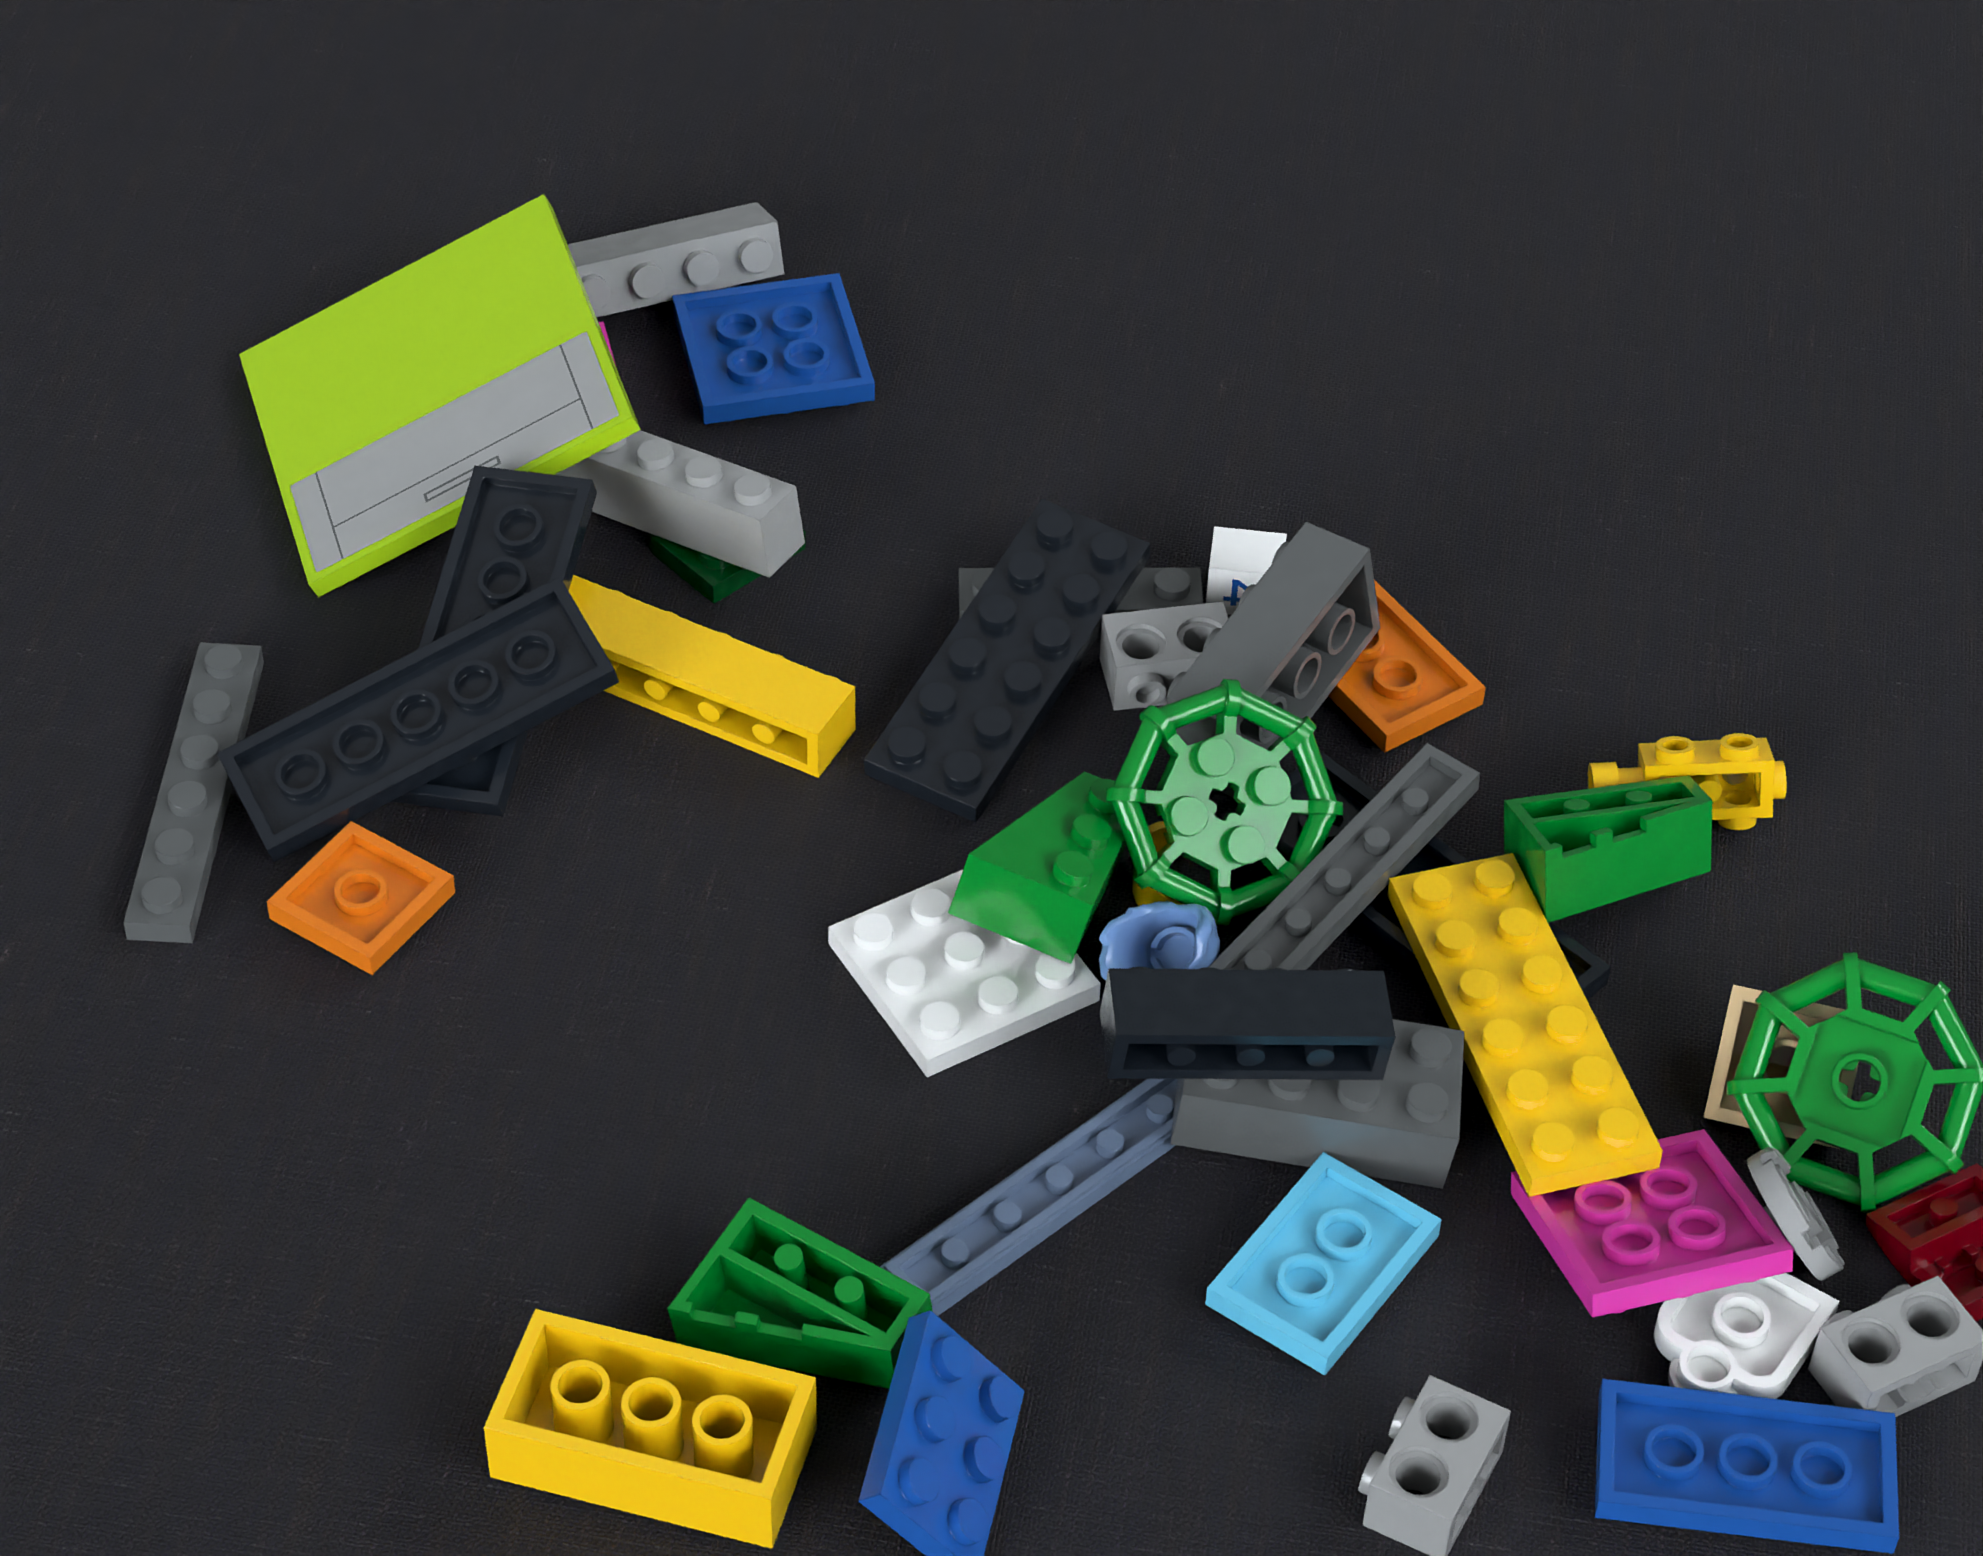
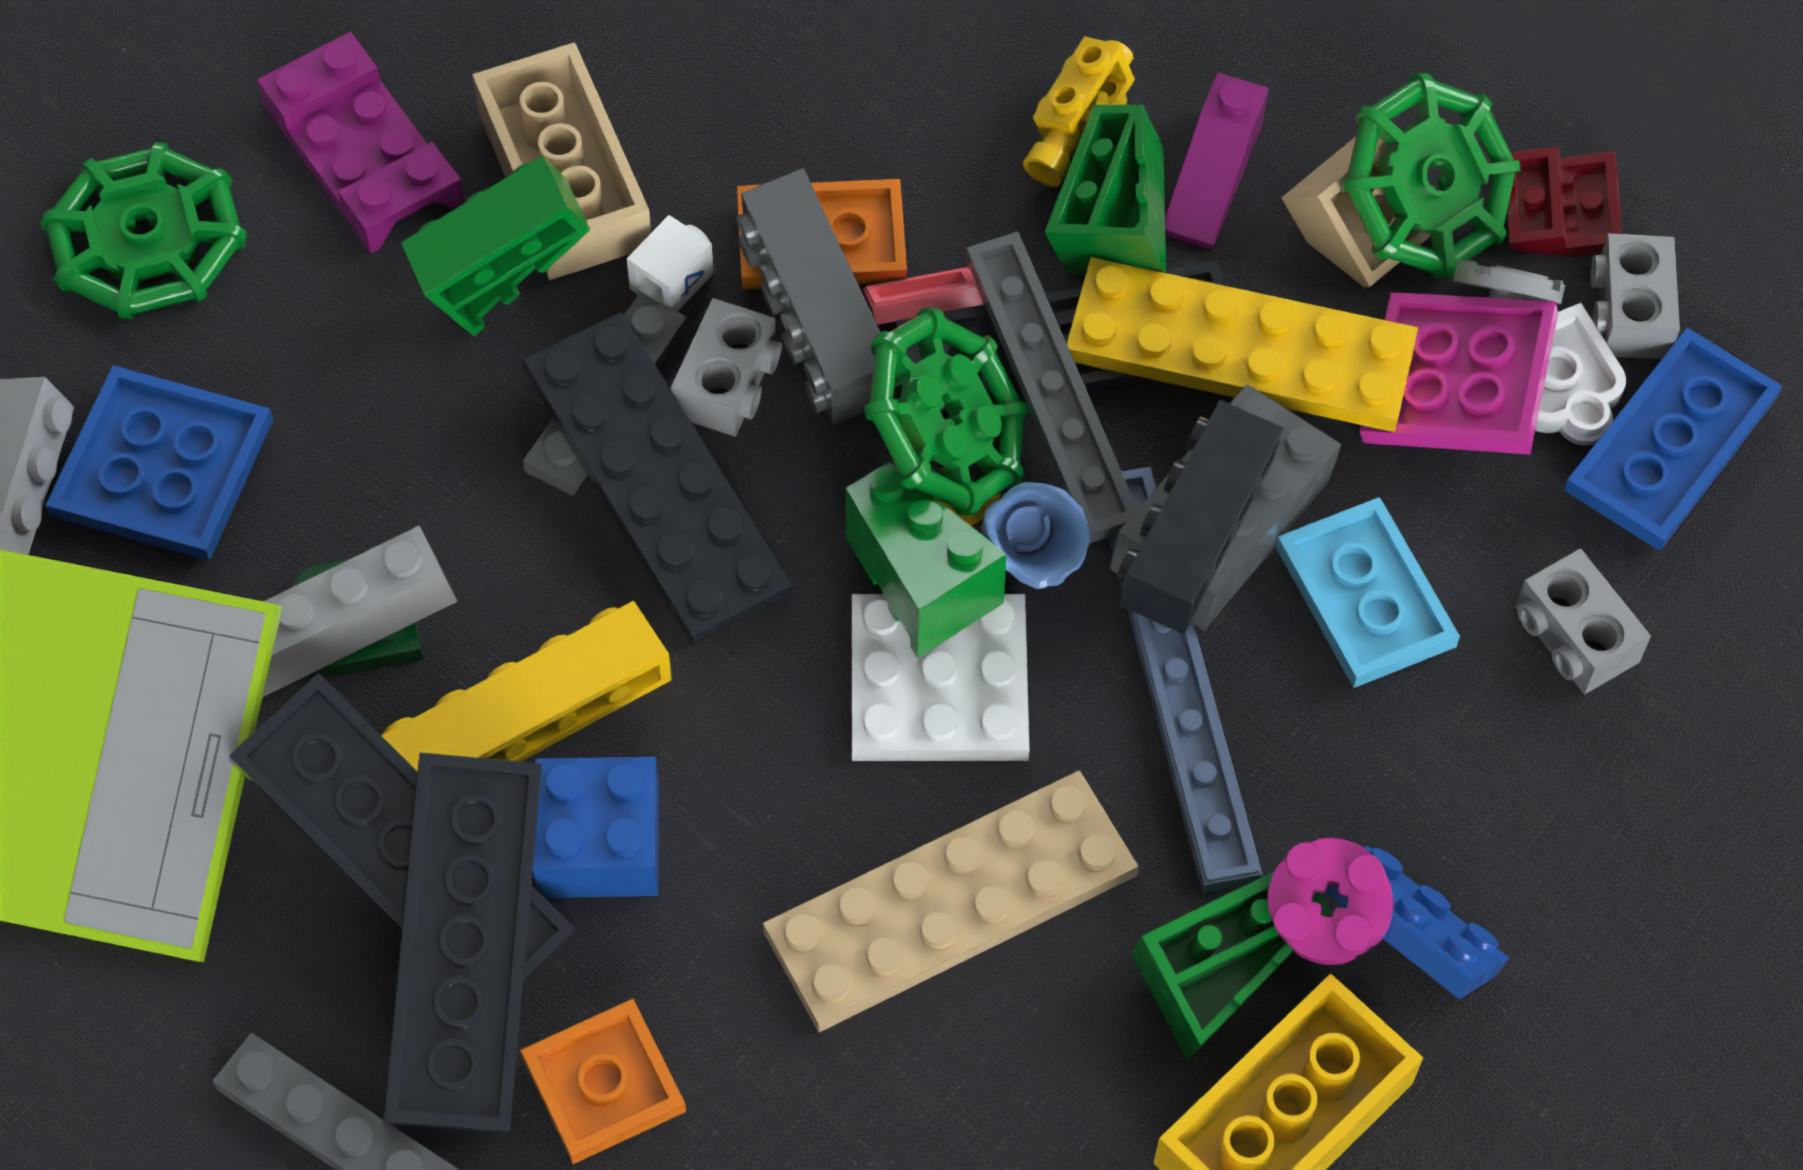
camera: 60 degrees left, 15 degrees up
(612, 775) = (597, 827): none -> blue brick
(729, 1078) = (949, 900): none -> tan plate
(876, 1293) = (1351, 929): none -> dark pink plate
(994, 239) = (147, 255): none -> green plate
(1132, 415) = (495, 242): none -> green wedge
(1203, 320) = (357, 139): none -> magenta piece
(1286, 442) = (554, 111): none -> tan brick
(1357, 752) = (907, 296): none -> coral tile
(1738, 919) = (1216, 160): none -> magenta slope

